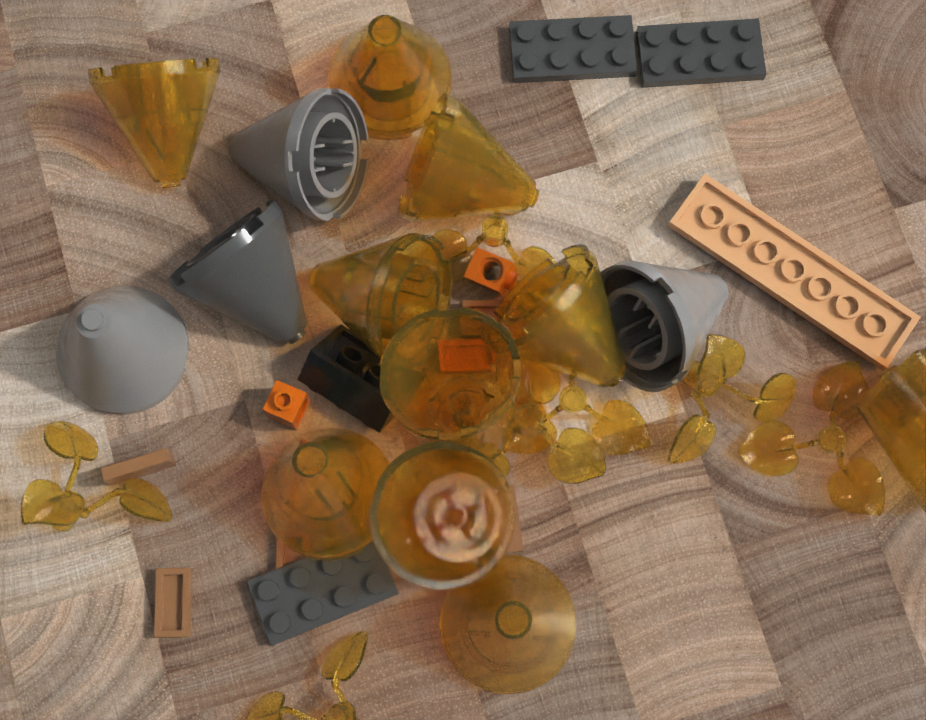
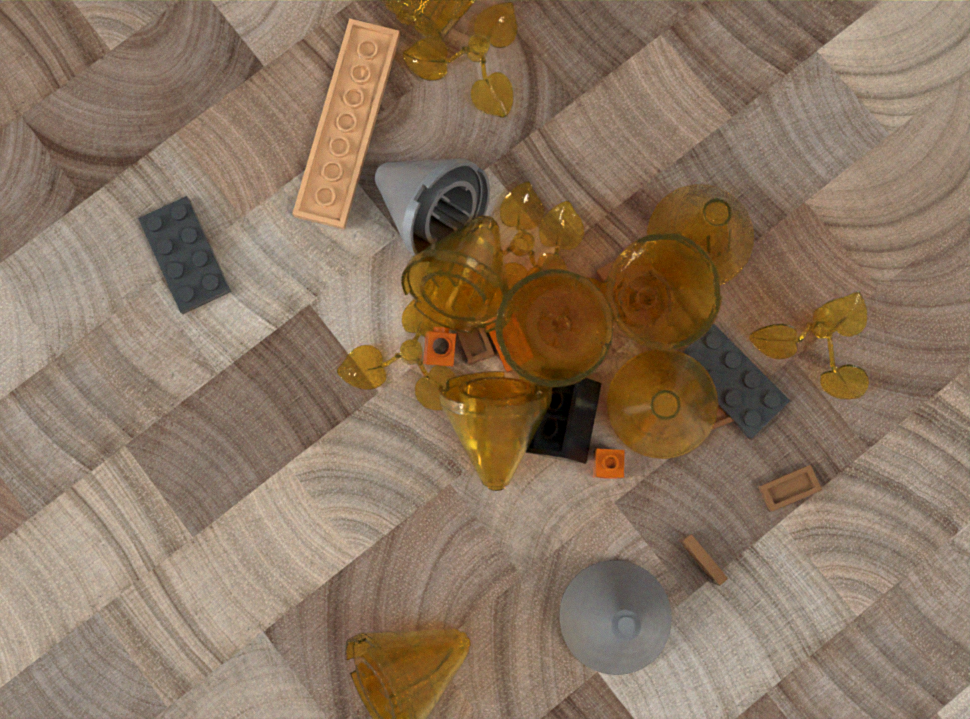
camera: 105 degrees left, 5 degrees up
(49, 505) = (769, 601): clear yellow plant -> none
(249, 276) = (519, 540): dark grey cone -> none
(309, 153) = (402, 533): light grey cone -> none
(392, 75) = (301, 497): clear yellow cone -> none
(462, 170) = (369, 402): clear yellow cone -> none
(572, 49) = (218, 358): dark grey plate -> none
(720, 361) = (465, 145): clear yellow plant -> none

